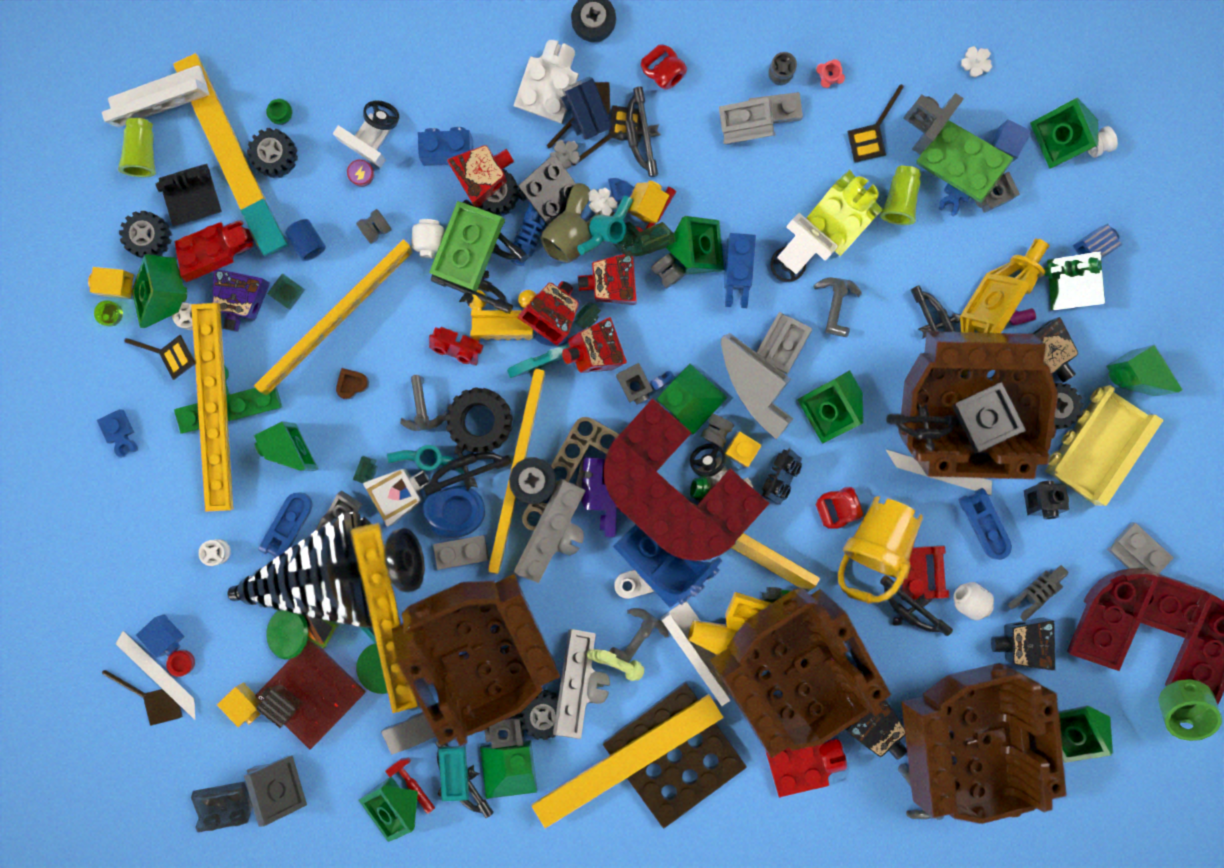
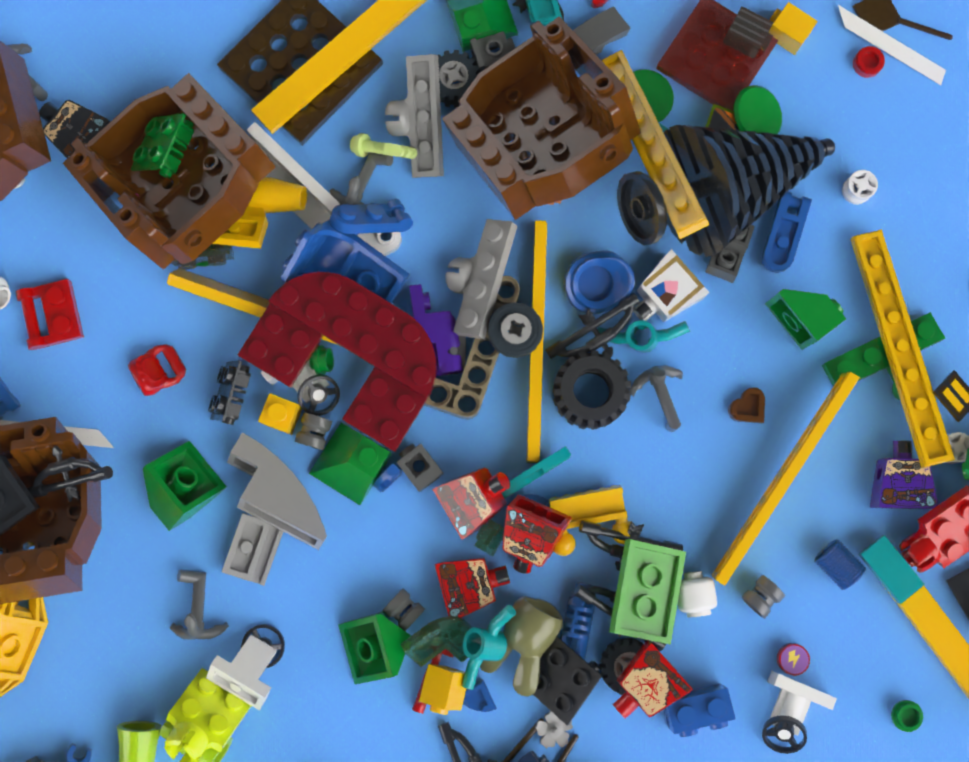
camera: 165 degrees right, 5 degrees down
(160, 636) = (897, 84): blue brick -> none
(269, 144) = (914, 665): black wheel -> none
(286, 291) = (848, 499): clear green plate -> none
(366, 469) = (709, 310): clear green plate -> none
(444, 343) = (626, 468): red hinge -> none
(461, 552) = (582, 239): light grey plate -> none
(602, 202) = (499, 677): white plant -> none
(637, 601) = (370, 218): none -> blue plate
(739, 266) = (320, 629): blue hinge -> none
(806, 767) = (147, 73): red plate -> none
(807, 701) = (158, 146): none -> green hinge
(882, 544) = (97, 336): yellow piece -> none
(907, 615) = (83, 289): black piece -> none
(945, 321) = (64, 612): black piece -> none

